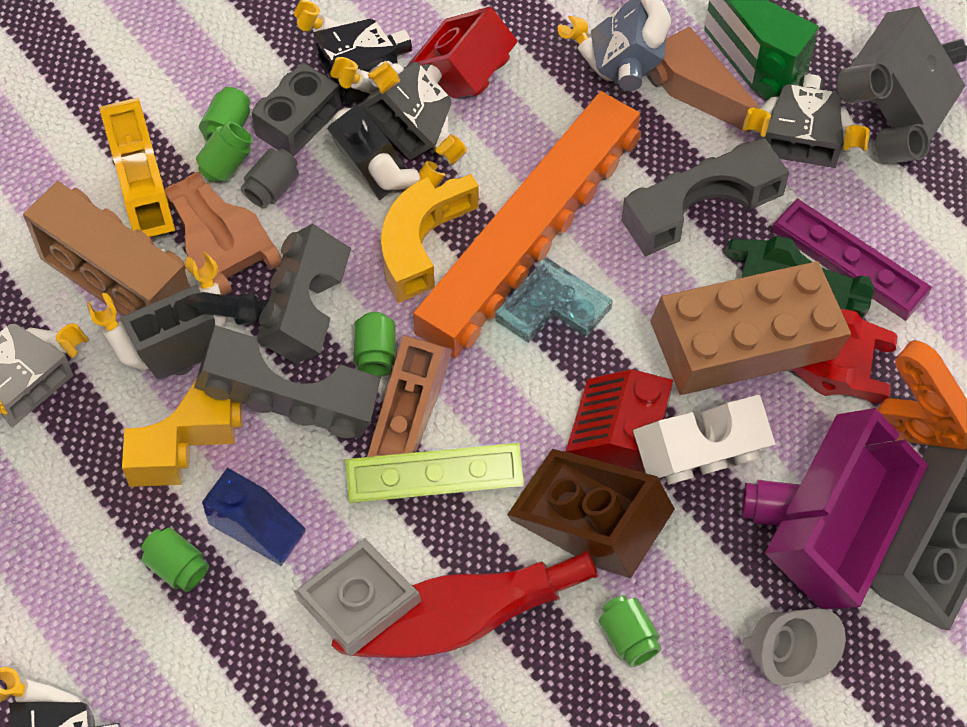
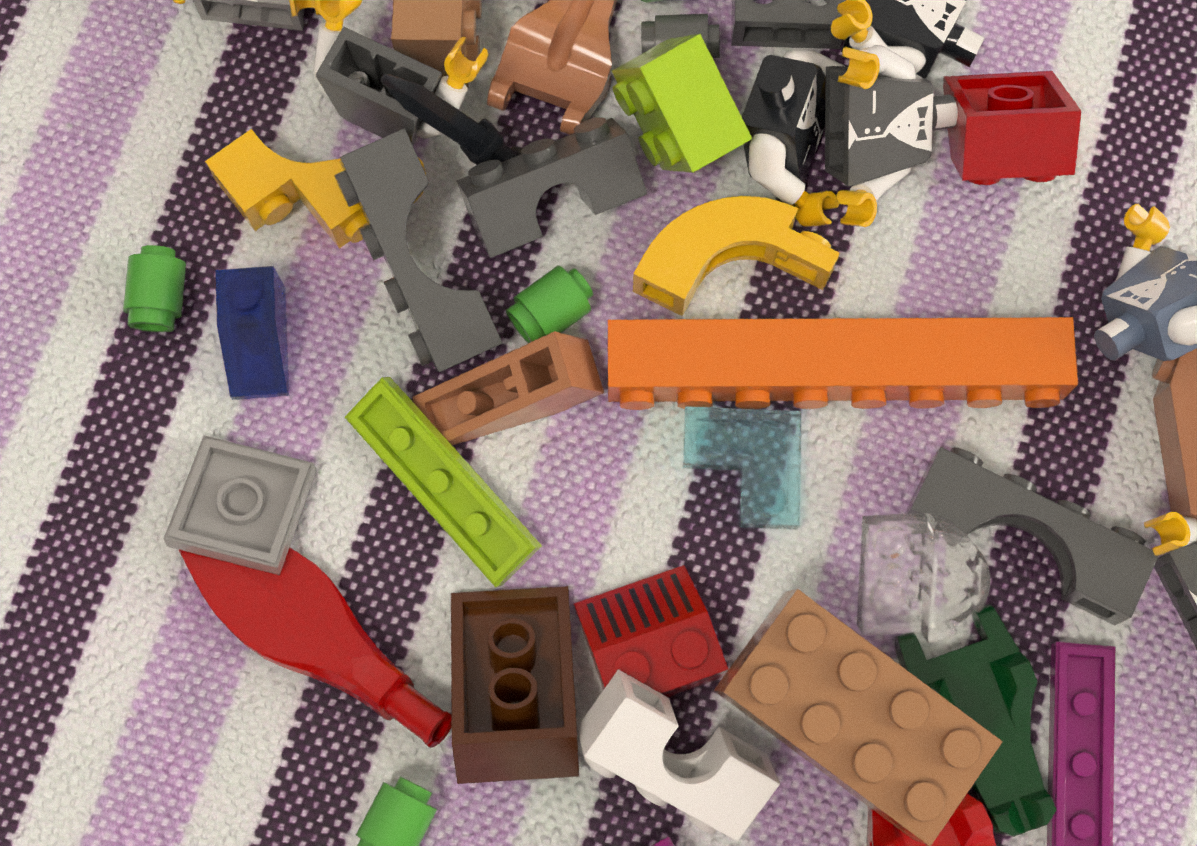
camera: 55 degrees right, 15 degrees up
(317, 187) = (680, 105): none -> lime brick
(688, 253) = (918, 576): none -> clear slope

